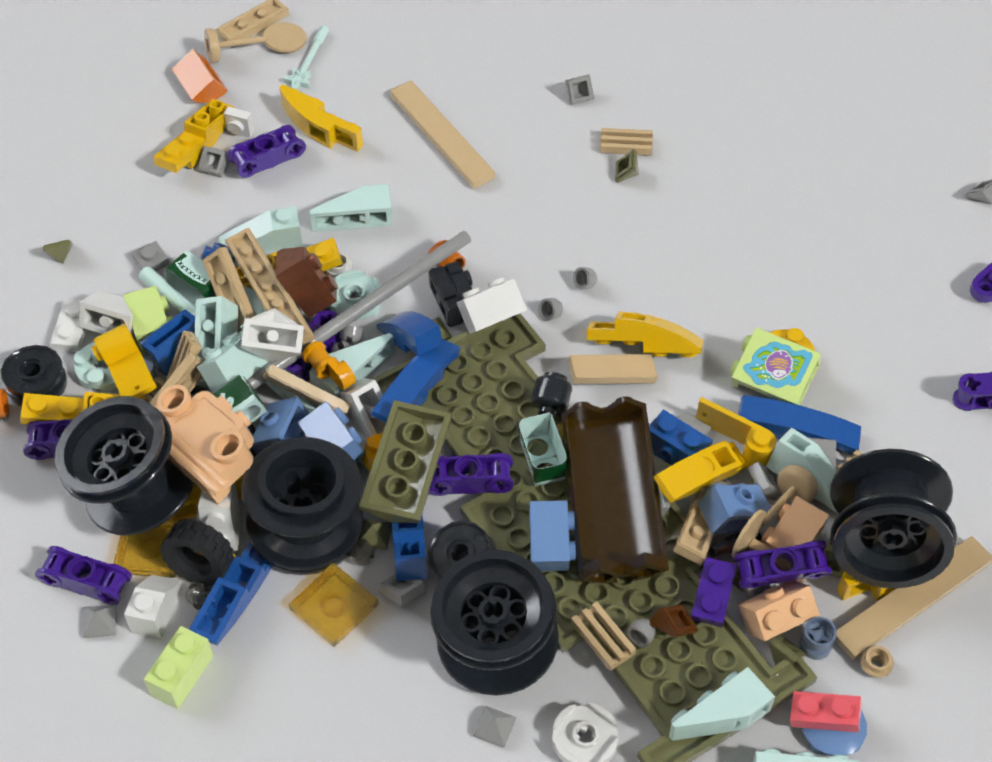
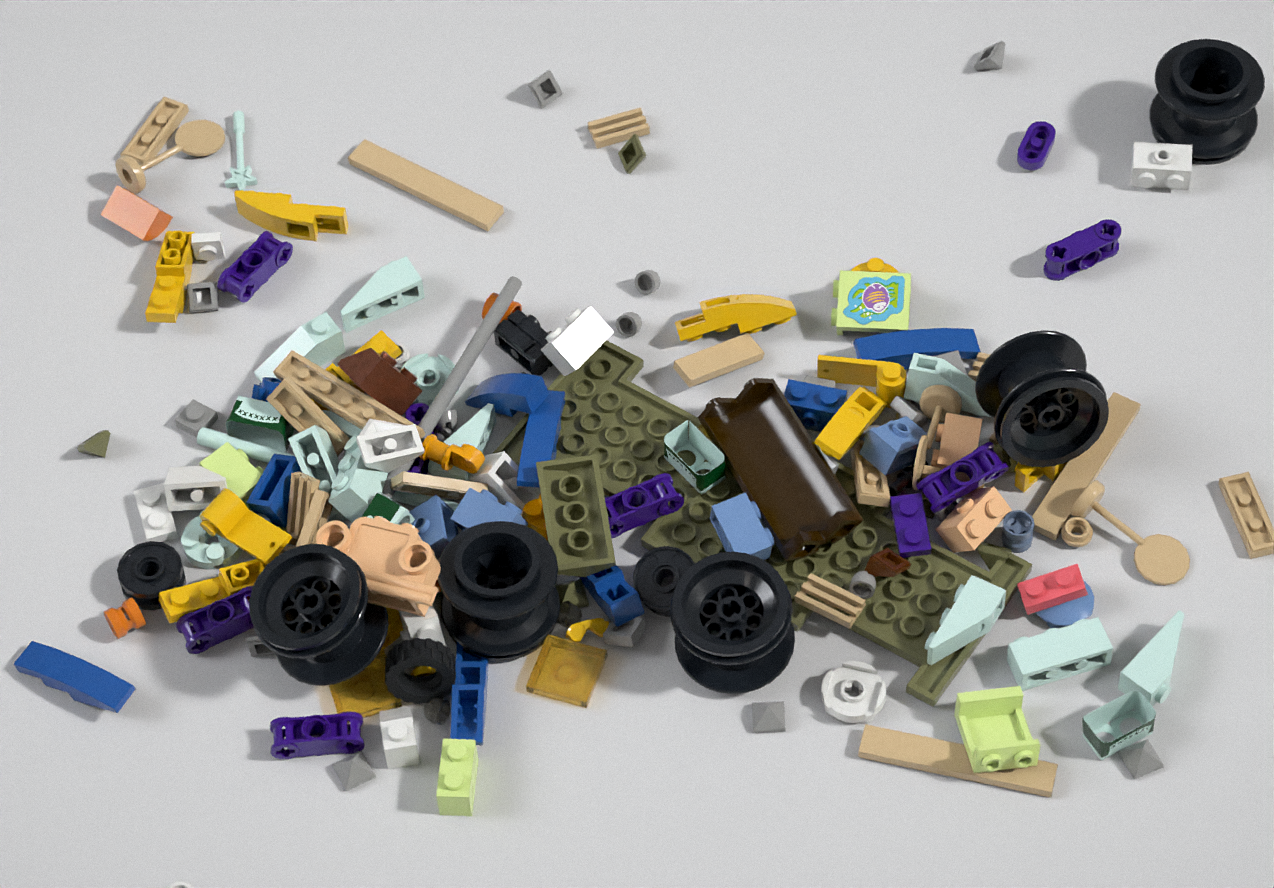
camera: 20 degrees left, 0 degrees up
(361, 570) = (577, 630): none -> yellow piece
(551, 393) = (676, 403): black head -> none
(948, 718) = (1156, 556): none -> tan piece

